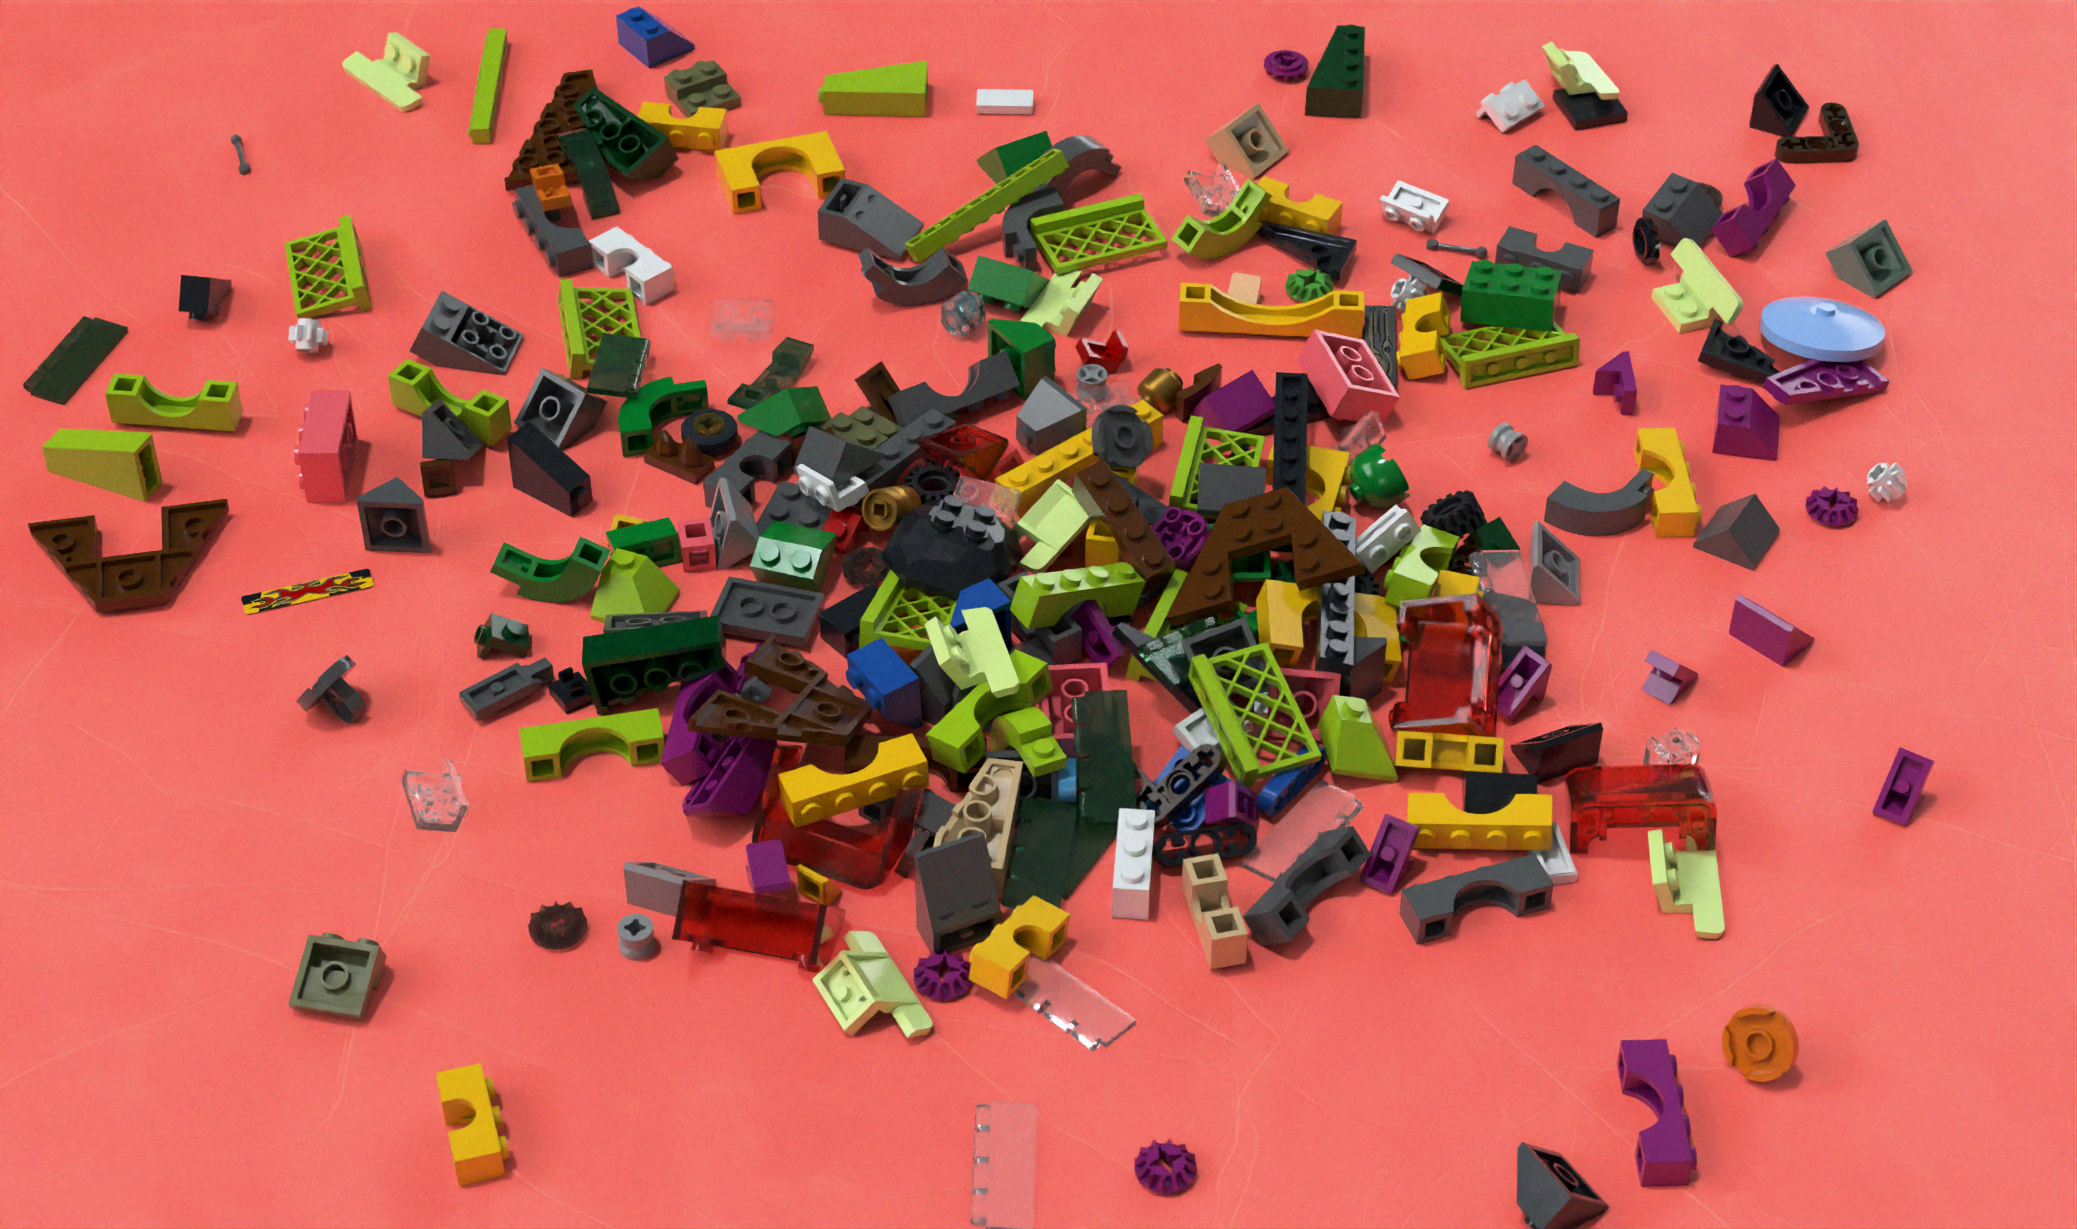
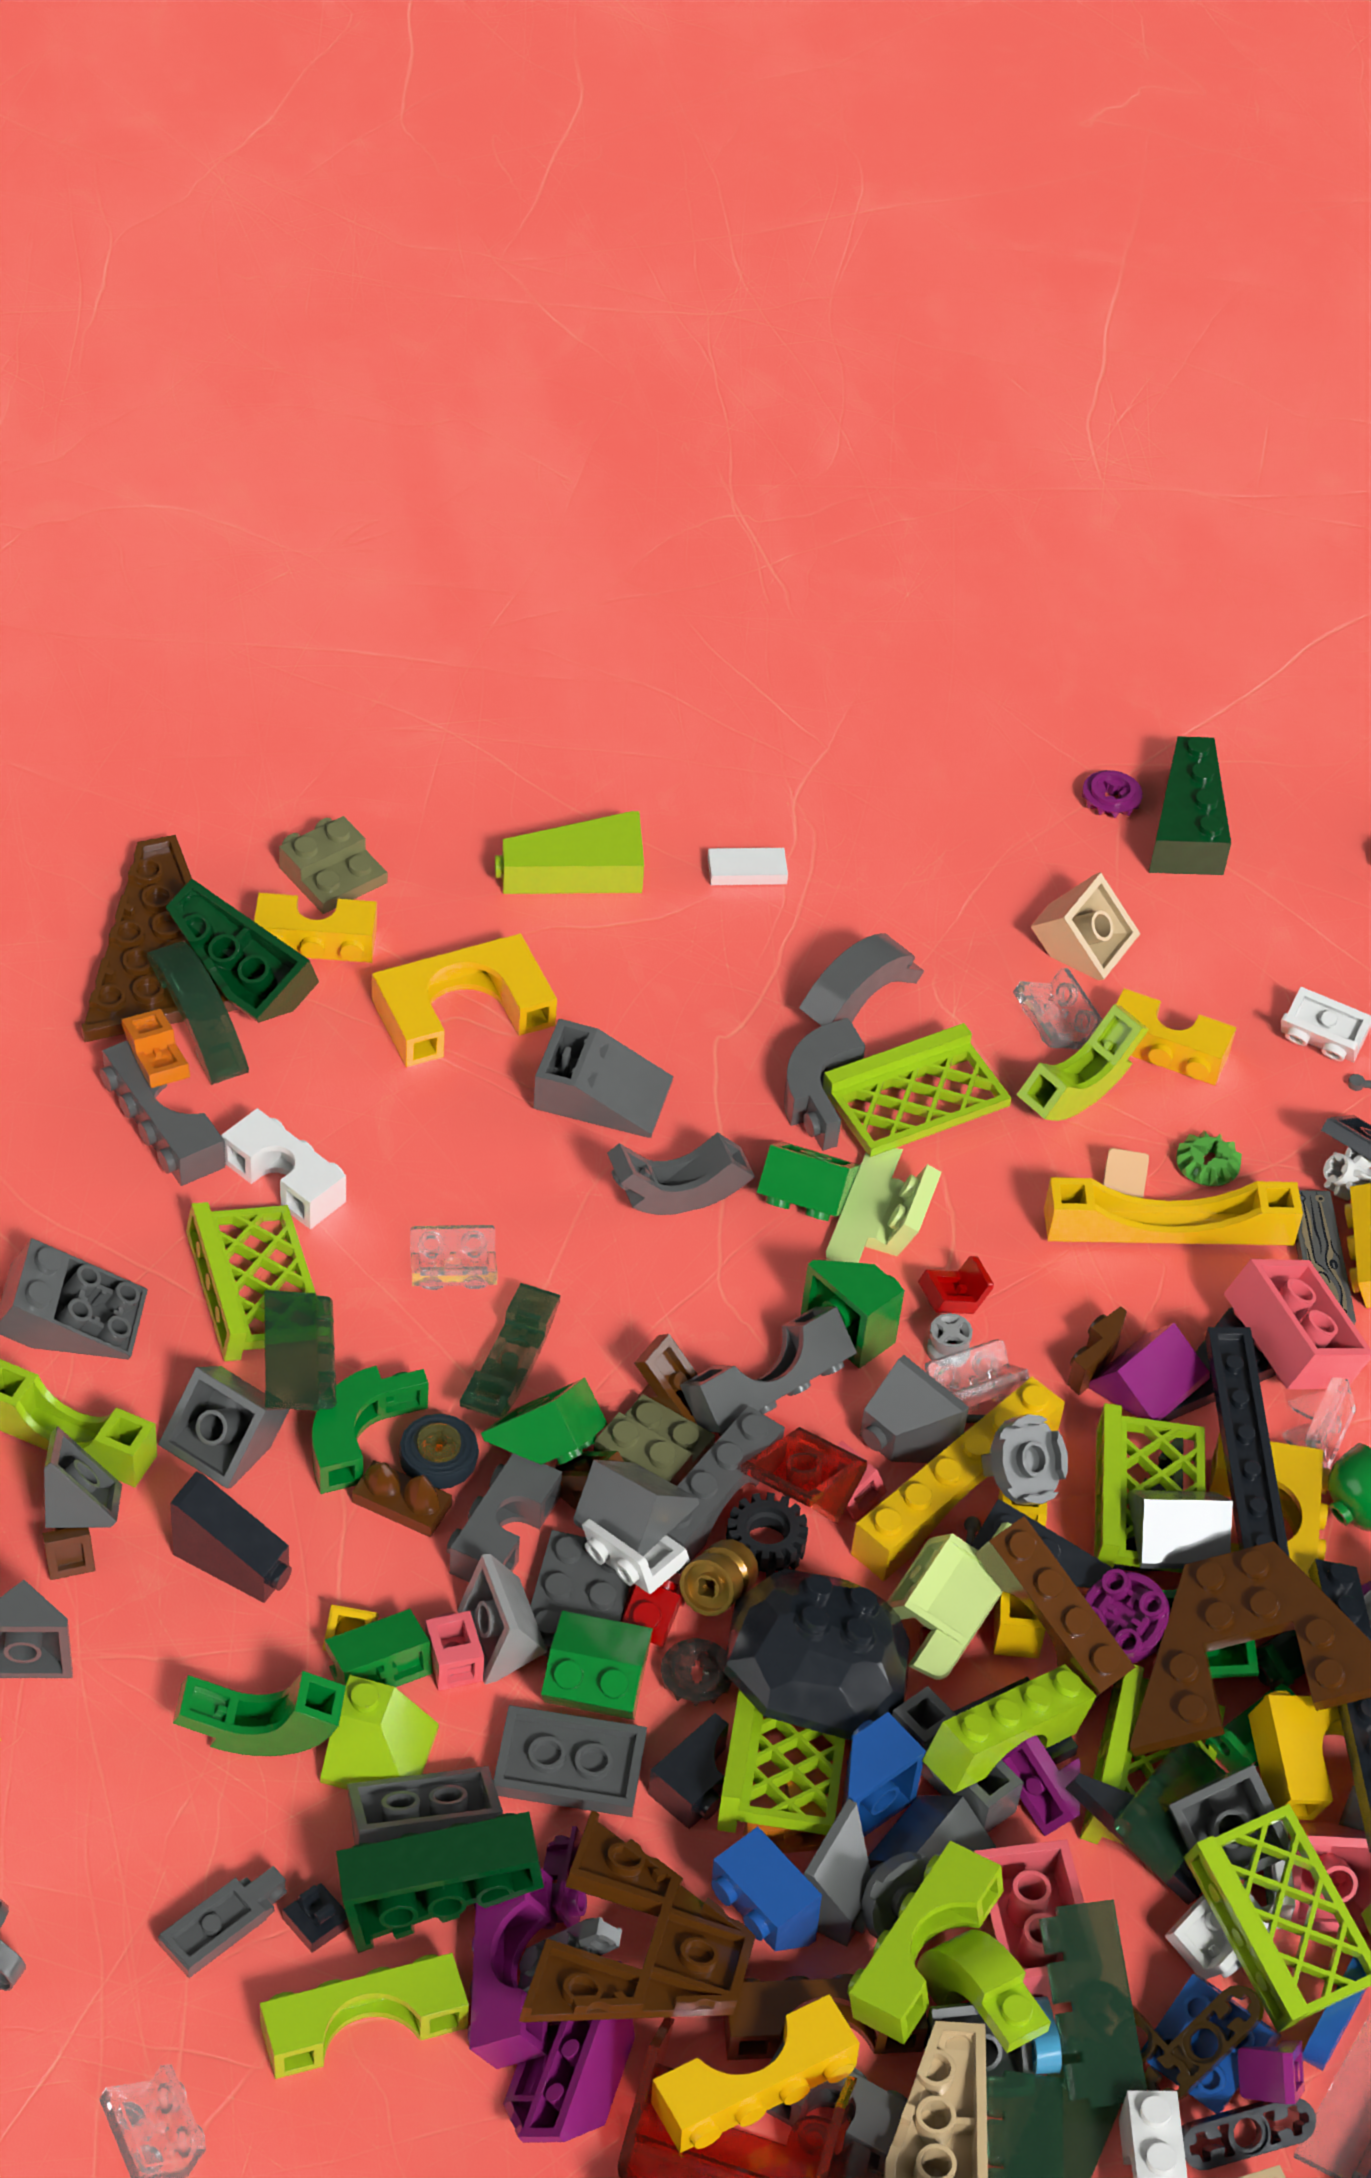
camera: 10 degrees left, 5 degrees up
(488, 86) = (33, 865): lime piece -> none
(503, 635) = (202, 1827): bracket -> none
(650, 37) = (247, 776): blue slope -> none
(963, 313) = (756, 1232): clear light blue head -> none
(974, 654) = (898, 1852): yellowish green plate -> none
(986, 205) = (762, 1054): lime piece -> none
(999, 498) = (851, 1559): clear bracket -> none
(1013, 156) = (783, 967): green slope -> none
(1160, 389) = (1046, 1349): pearl gold head -> none
(1315, 248) = (1213, 1100): black wing -> none

